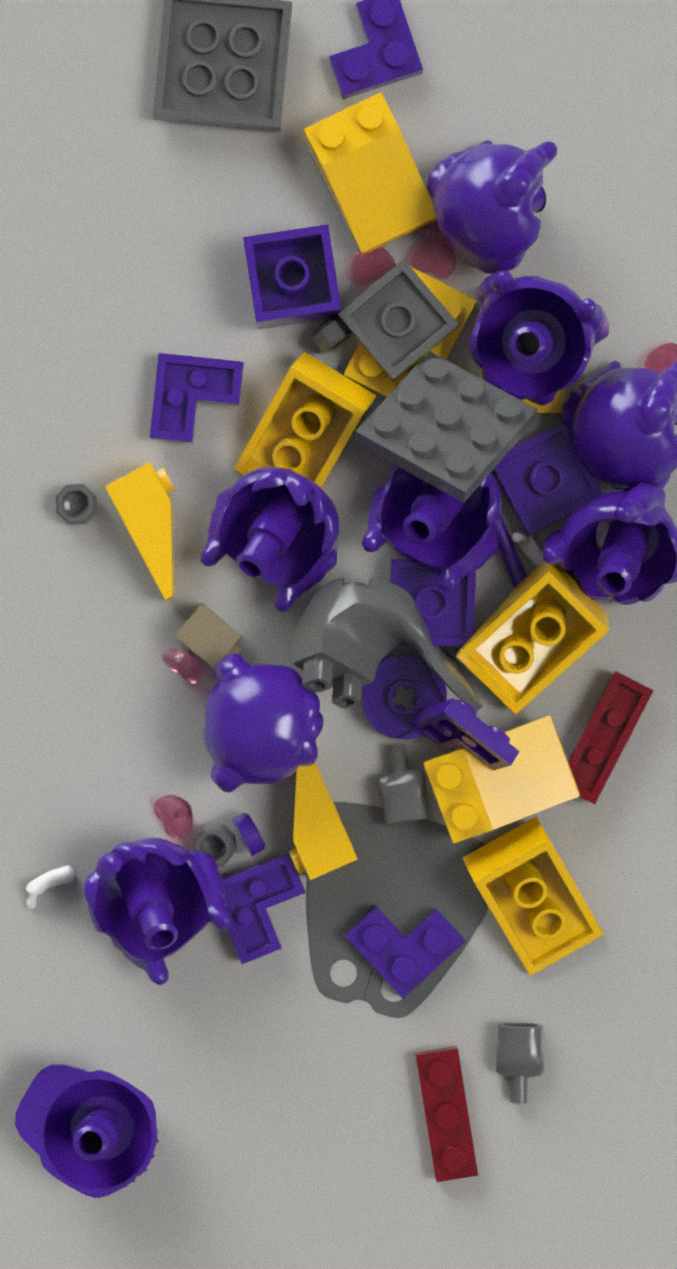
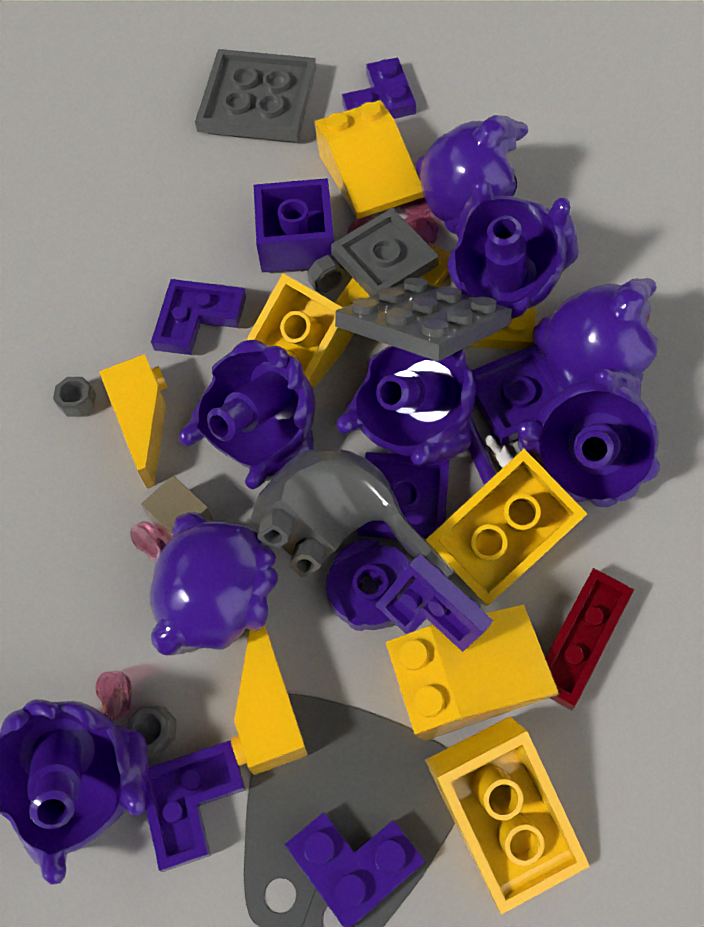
camera: 10 degrees right, 25 degrees down
(248, 833) = (190, 717): dark purple tile -> none
(402, 791) = (362, 684): dark grey piece -> none

